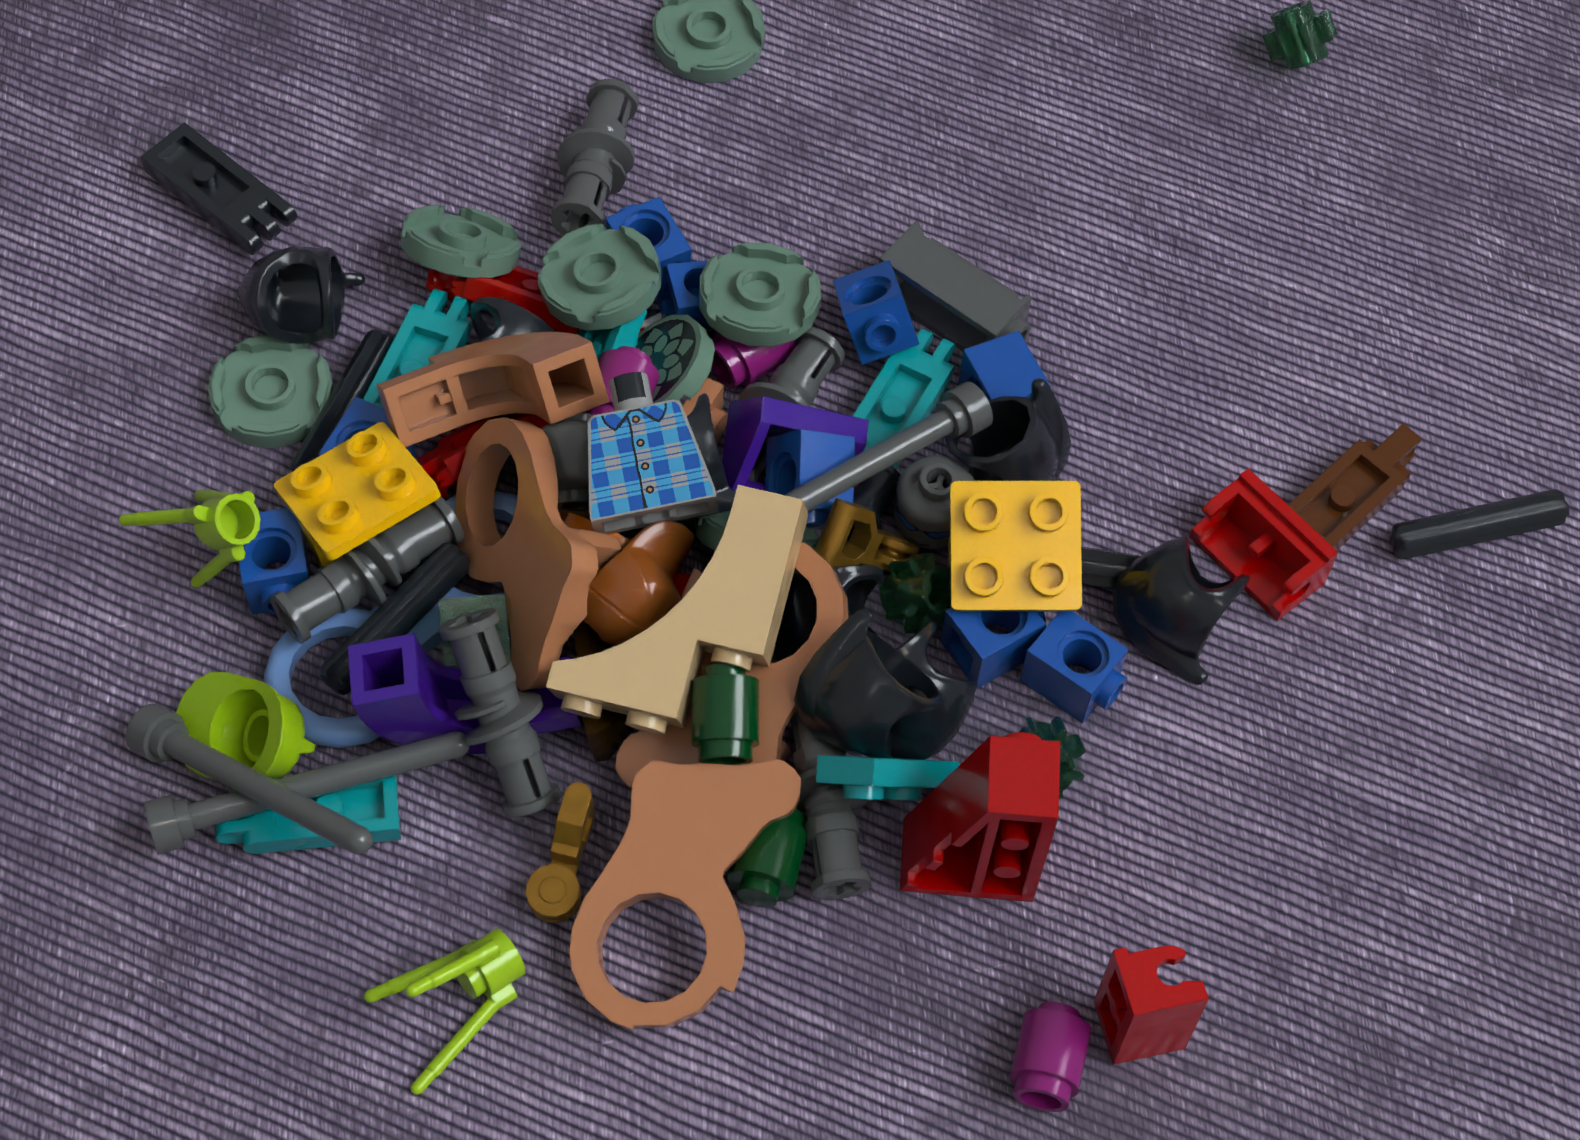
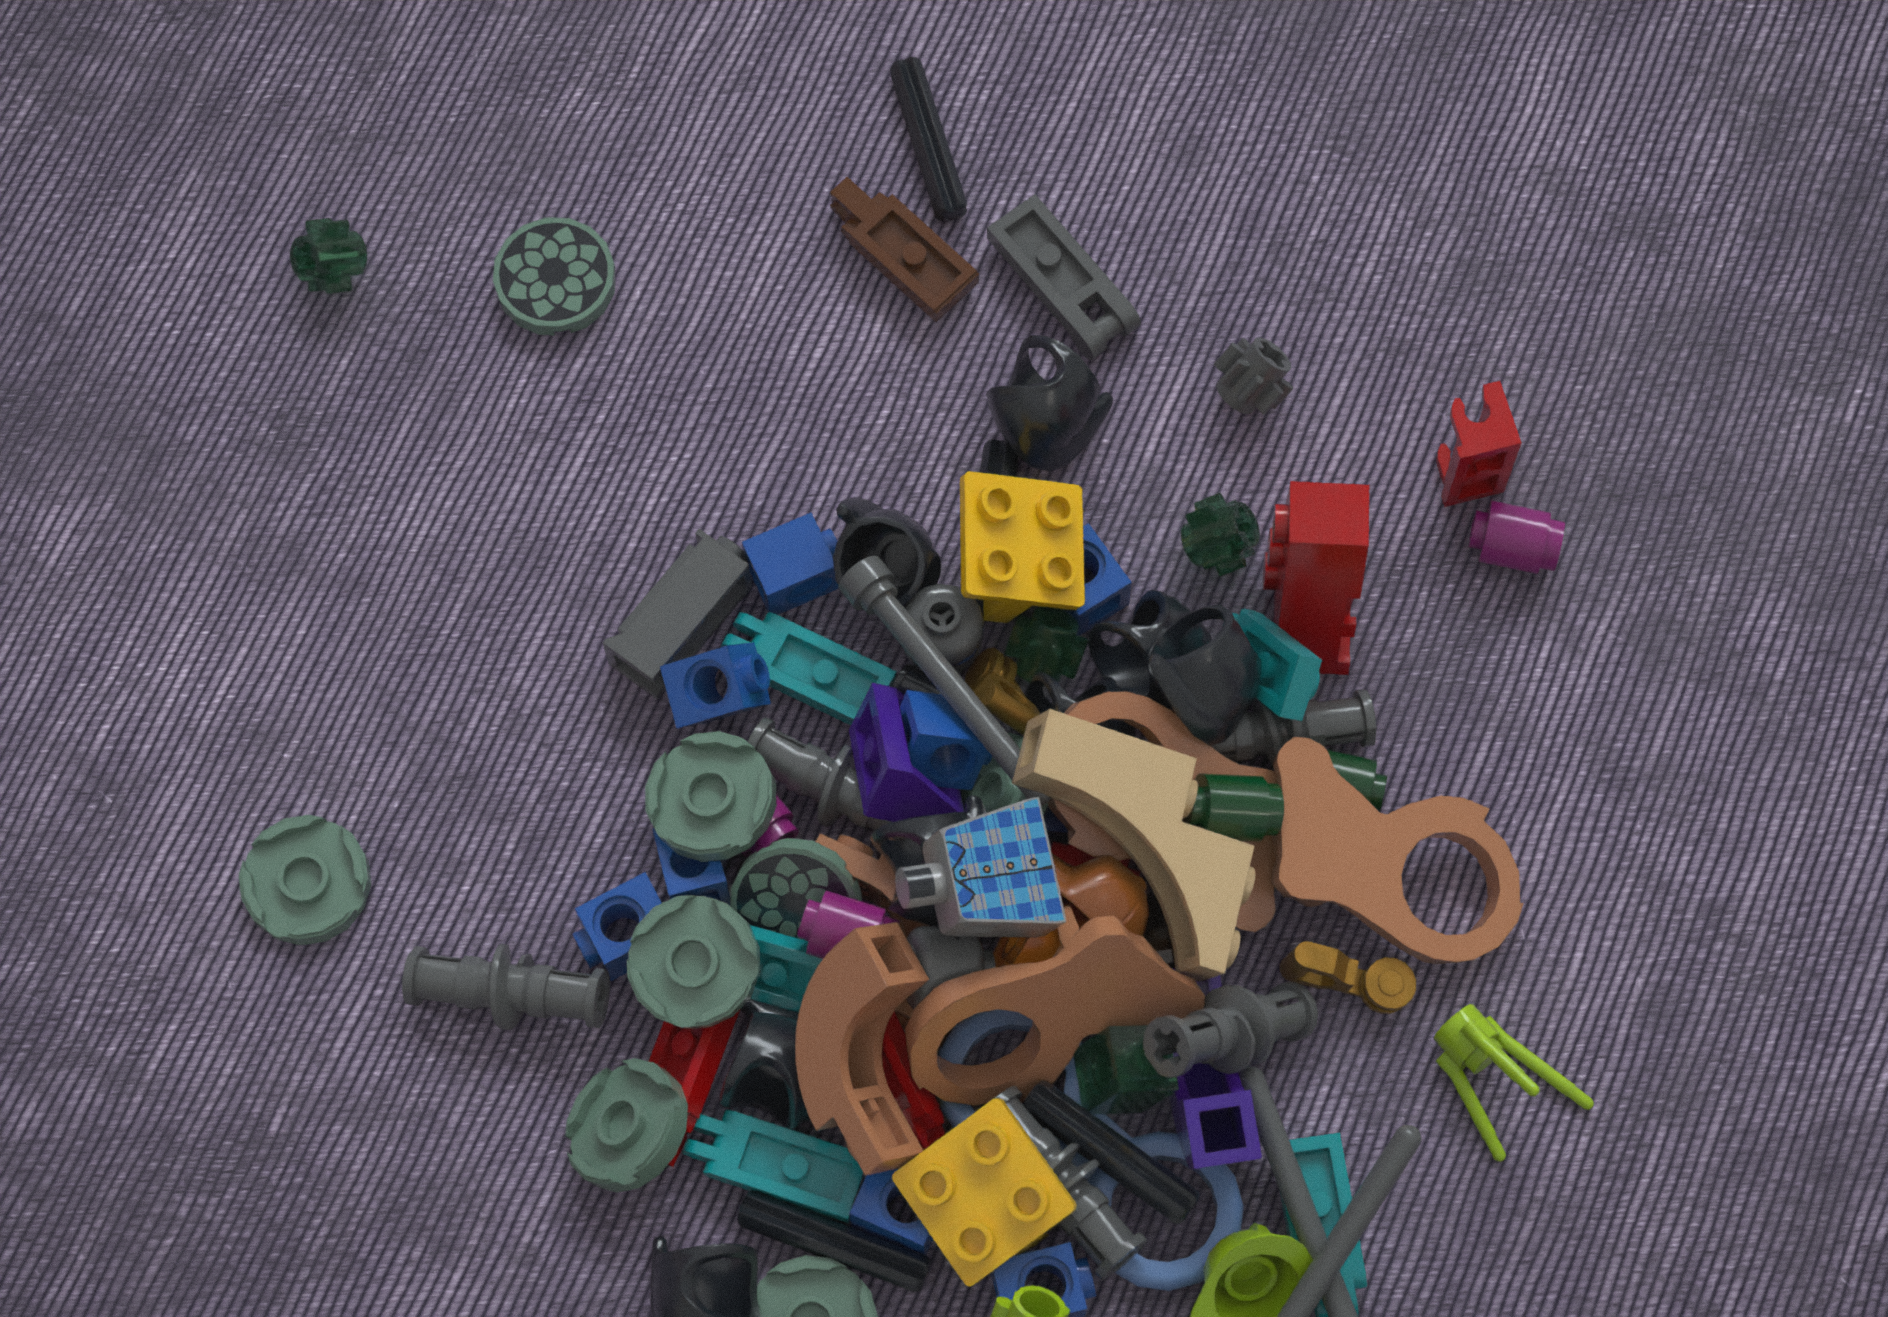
camera: 85 degrees left, 10 degrees up
(1077, 641) = (1127, 478): blue brick -> none
(1226, 800) = (1253, 375): none -> dark grey gear
(1263, 537) = (968, 330): red hinge -> none
(1299, 213) = (554, 276): none -> tile
(1332, 634) = (1062, 276): none -> dark grey plate

